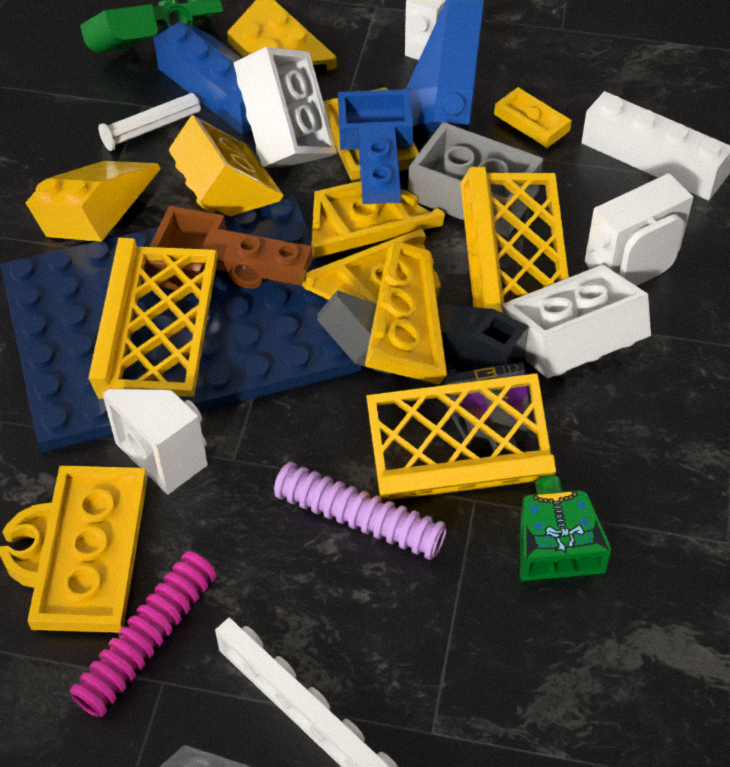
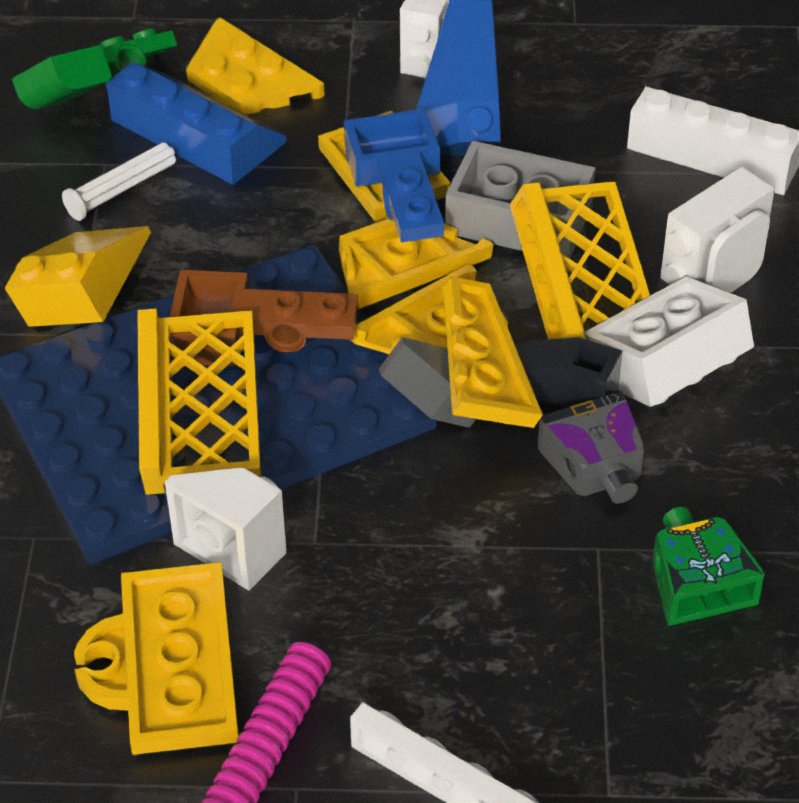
camera: 10 degrees left, 5 degrees down
(222, 170) = (223, 224): yellow slope -> none
(284, 107) = (283, 145): white slope -> none
(360, 510) = (475, 574): lavender piece -> none
(463, 474) = (583, 520): yellow fence -> none
(532, 117) = (567, 125): yellow plate -> none

